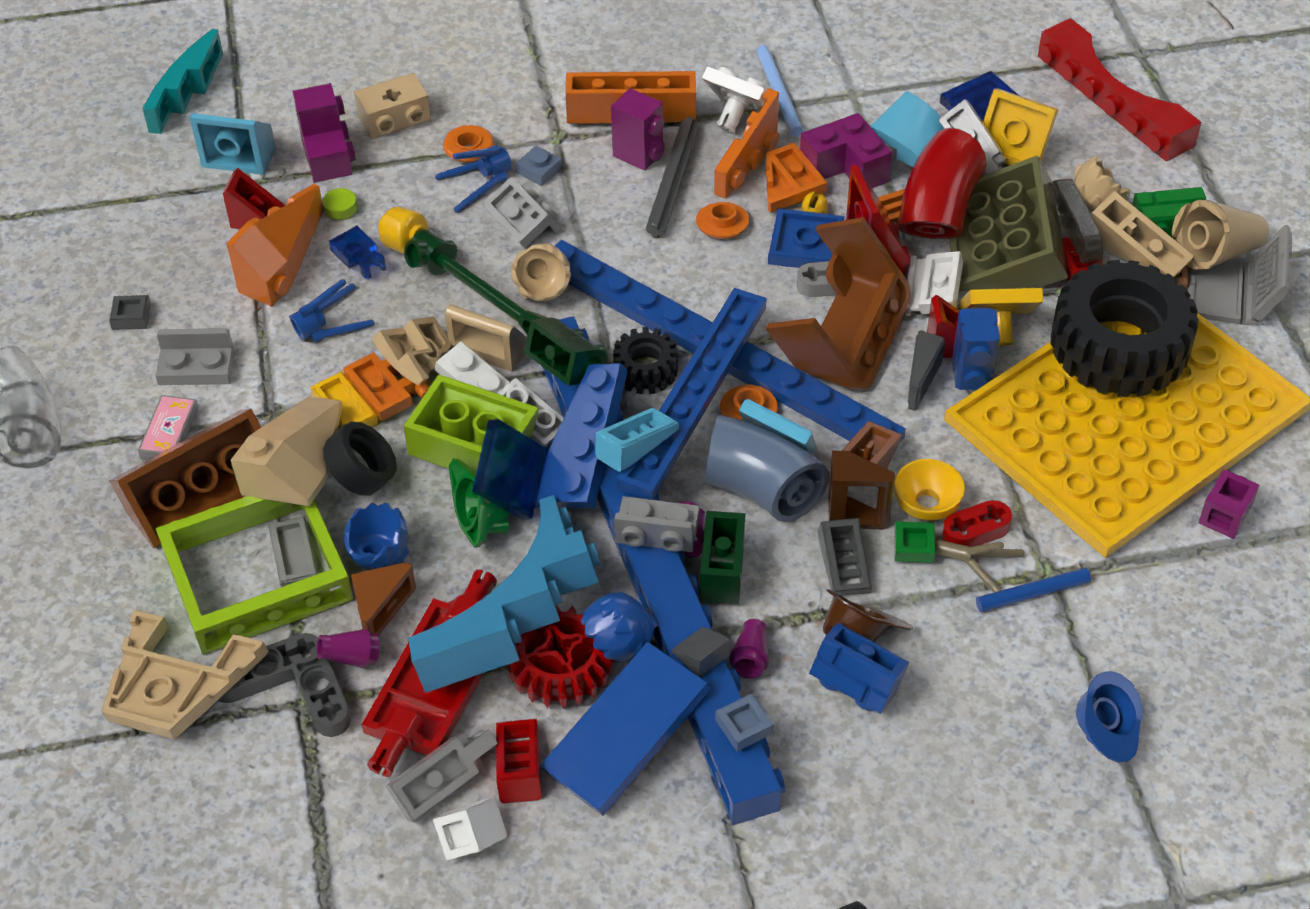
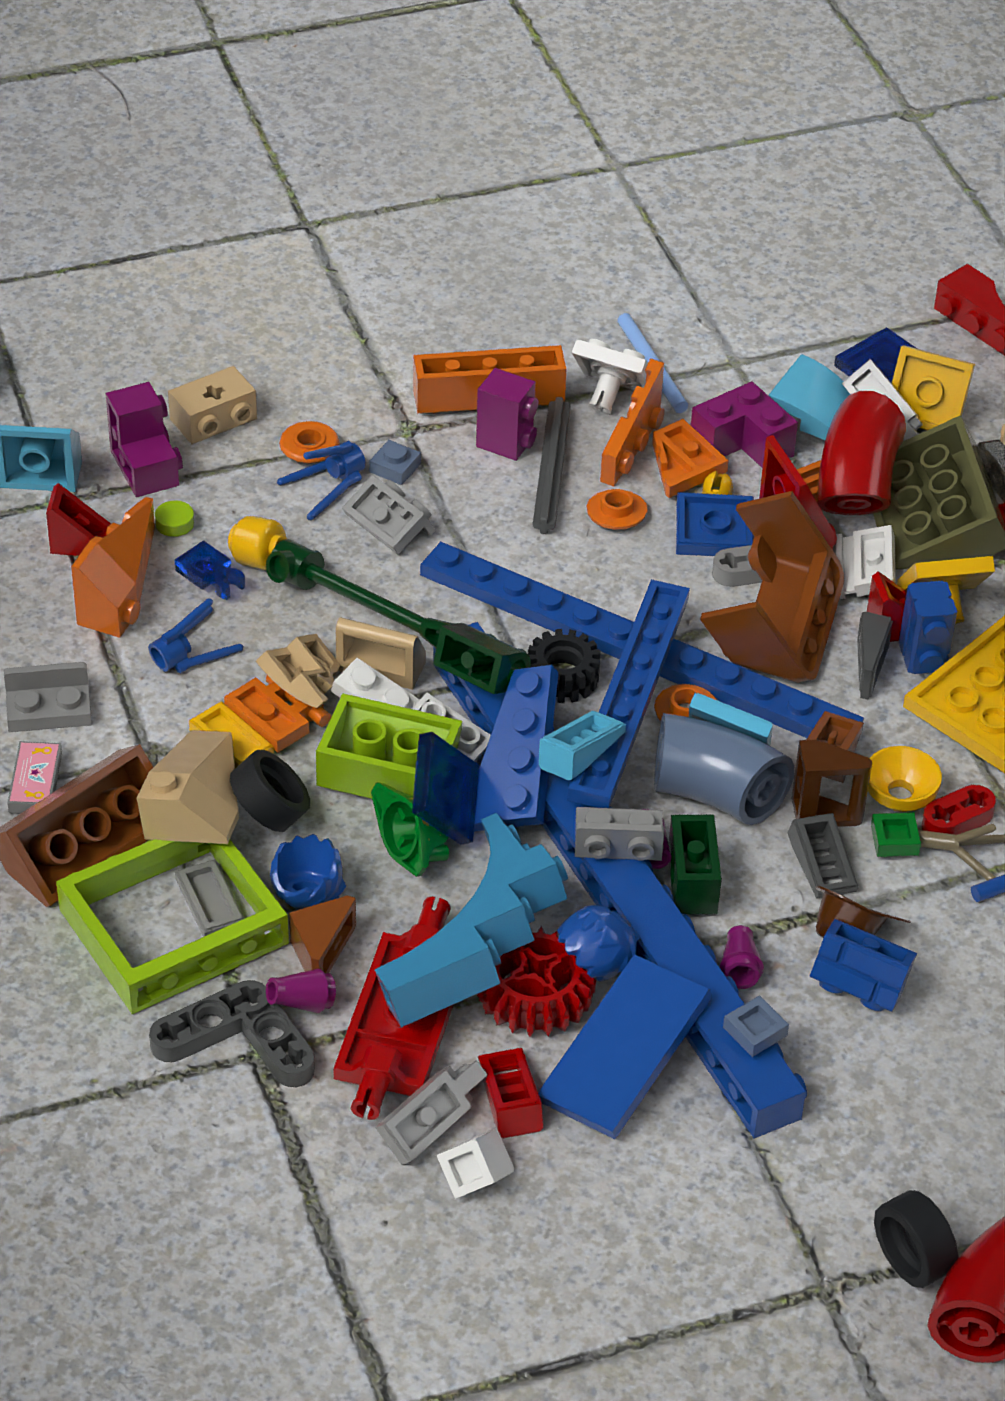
camera: 10 degrees left, 5 degrees down
(166, 692) = (108, 1053): tan wing -> none
(541, 272) = (429, 578): tan hair -> none
(703, 650) = (696, 957): dark grey slope -> none

